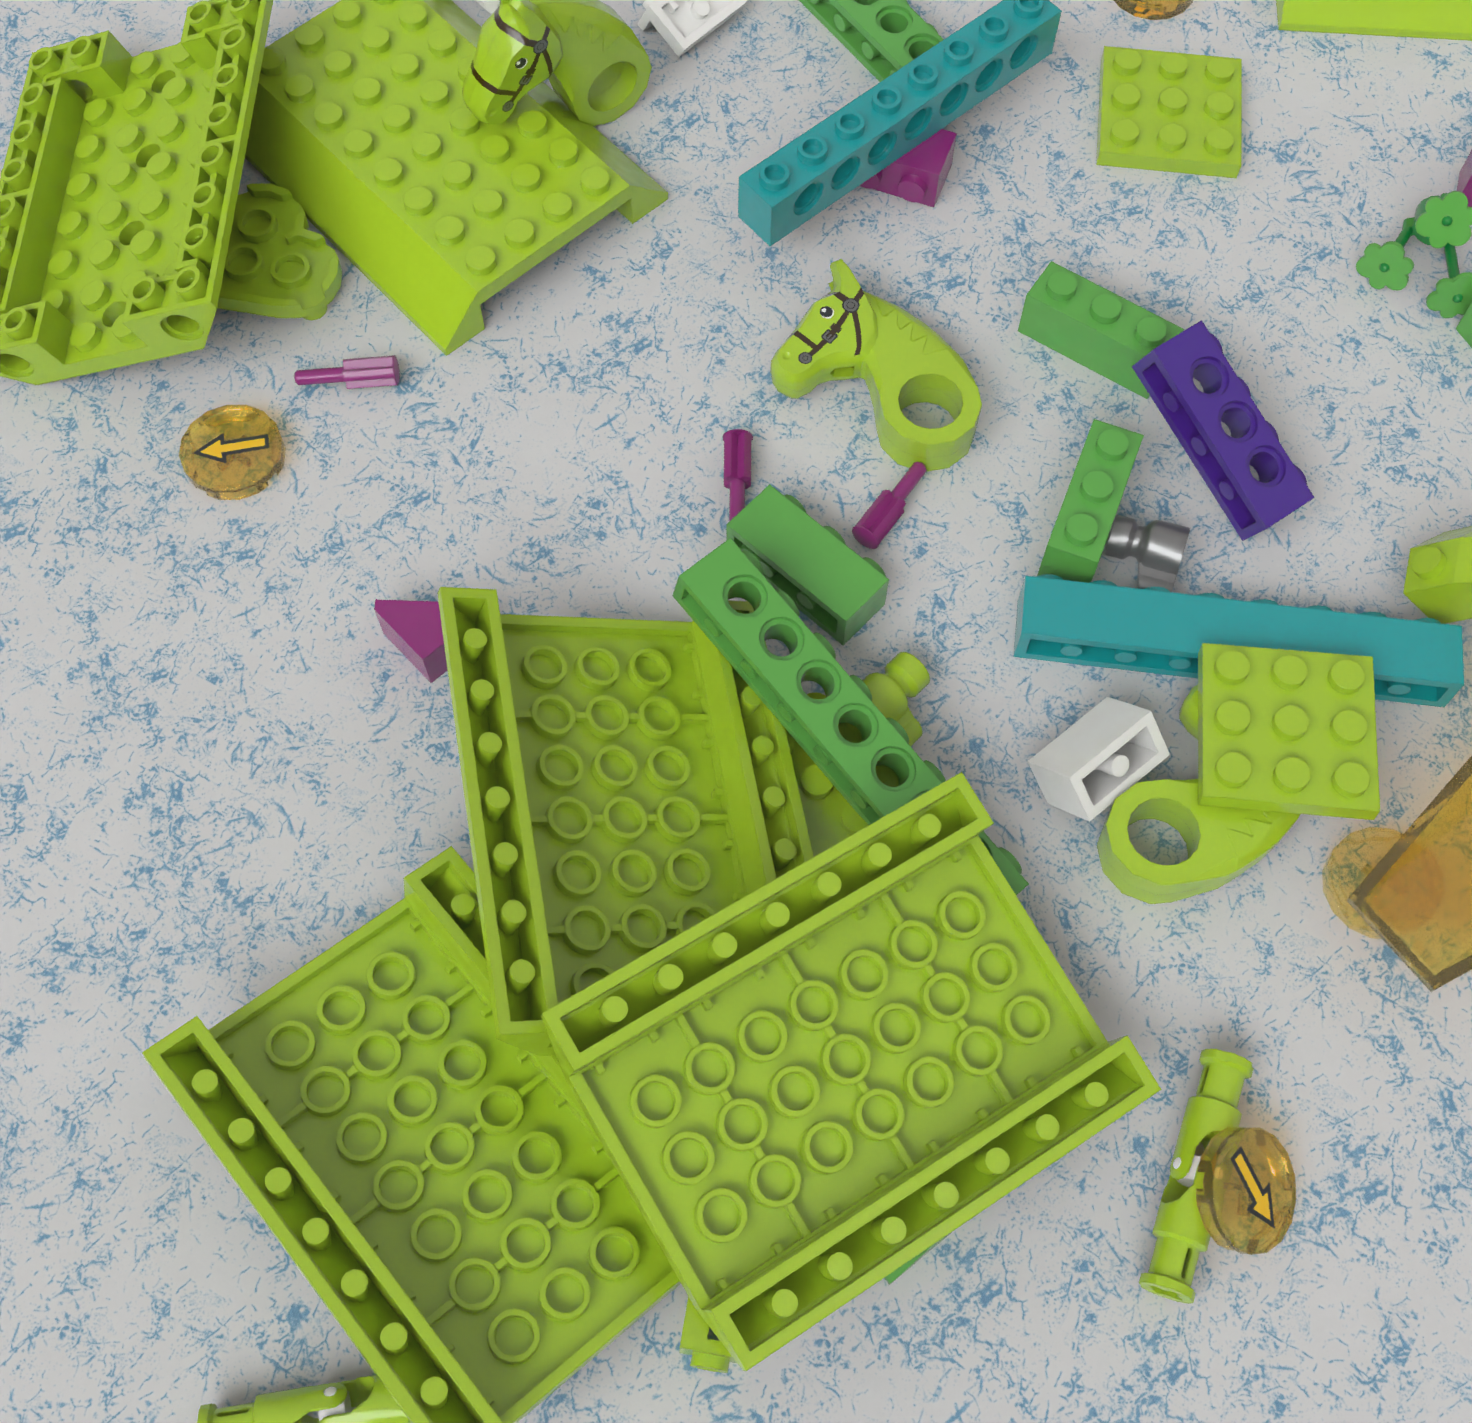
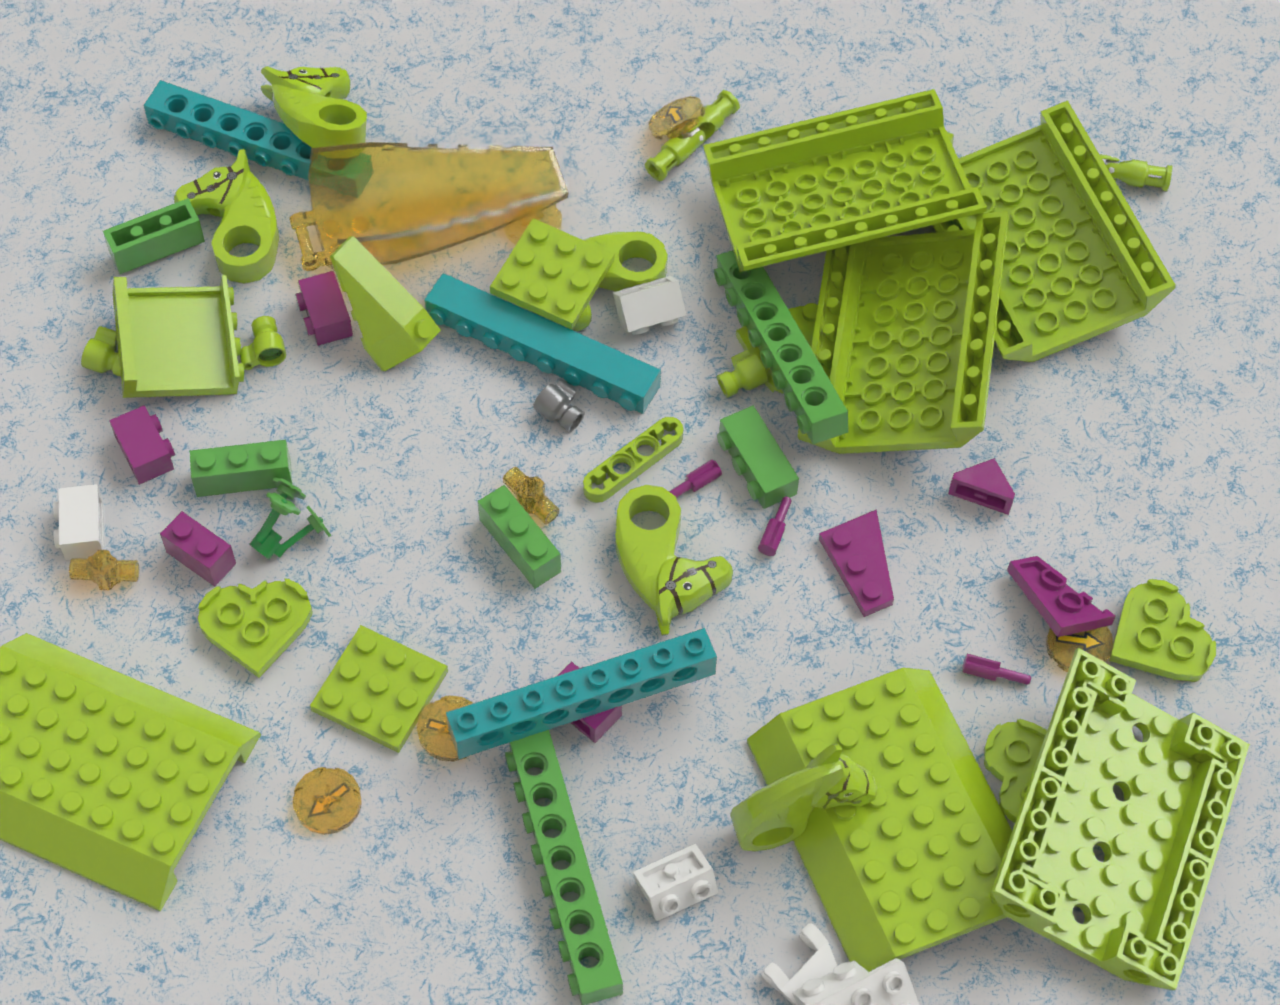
camera: 160 degrees left, 5 degrees down
(108, 497) = (1160, 635): none -> lime plate
(274, 481) = (1055, 600): none -> magenta wing
(595, 471) = (861, 561): none -> magenta wing
(993, 510) = (630, 456): none -> lime beam
(1054, 97) = (433, 728): none -> clear yellow tile
(1091, 502) = (582, 435): bright green brick -> none
(1114, 396) = (531, 494): none -> clear yellow axle
(1222, 458) = (489, 437): dark purple brick -> none
(1375, 129) = (255, 622): none -> lime plate

